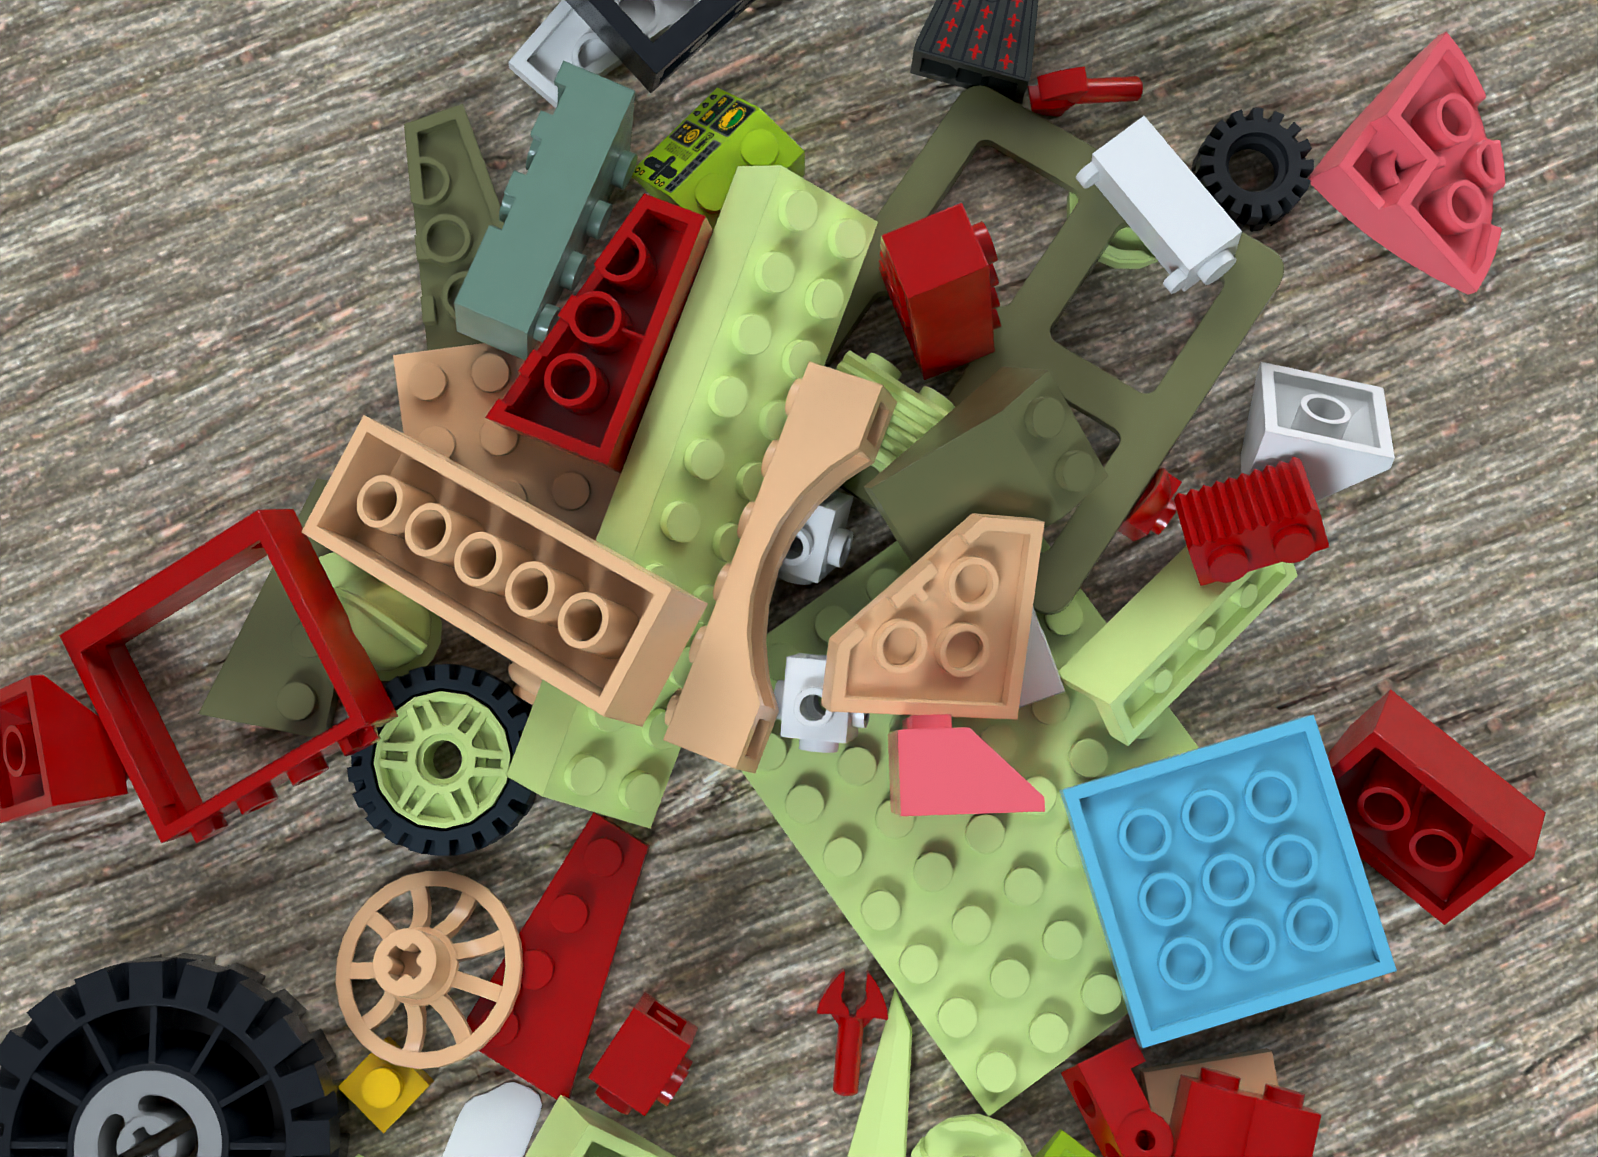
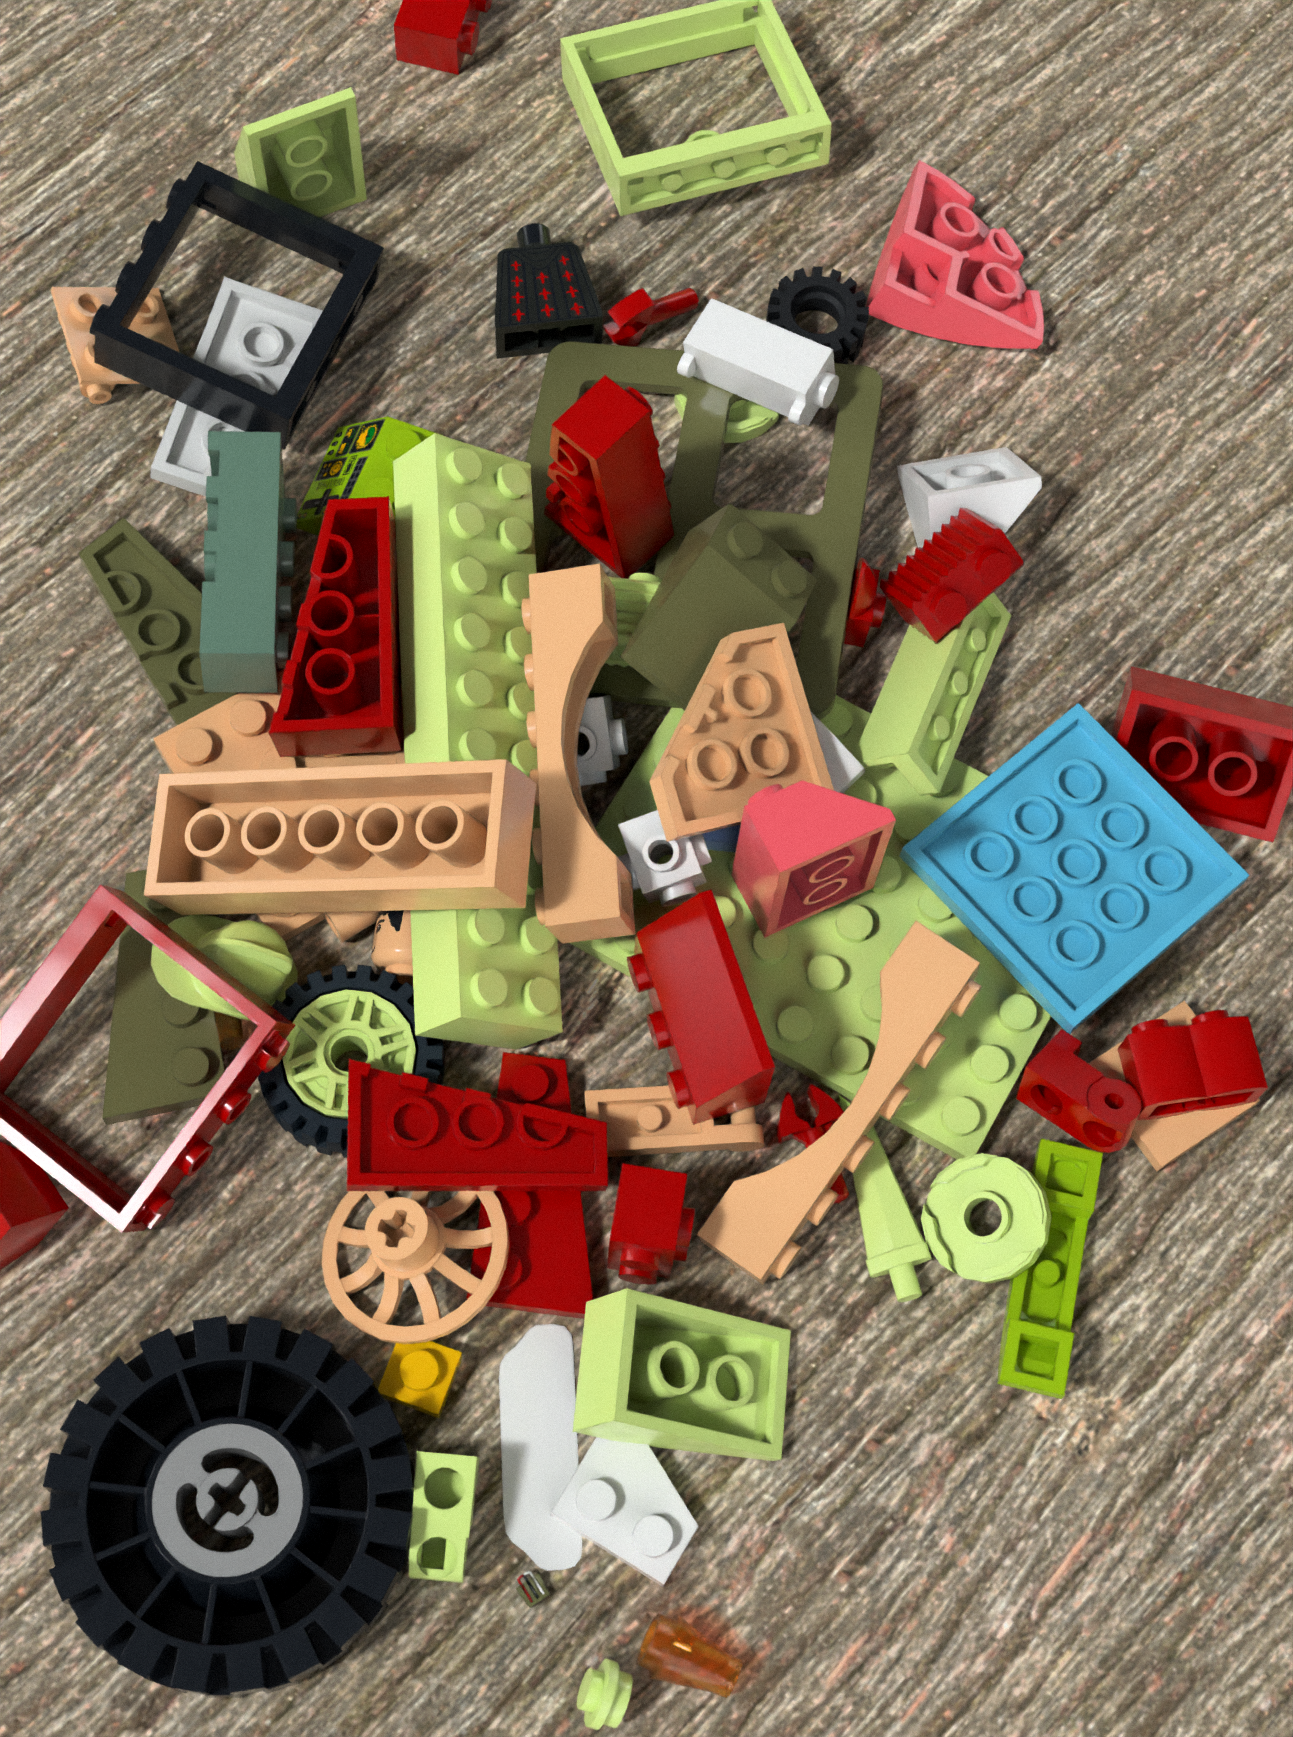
camera: 30 degrees left, 15 degrees down
(500, 892) = (452, 1139): none -> red wing
(721, 949) = (649, 1123): none -> light nougat plate
(770, 1083) = (765, 1212): none -> light nougat arch
(782, 879) = (701, 1011): none -> red slope

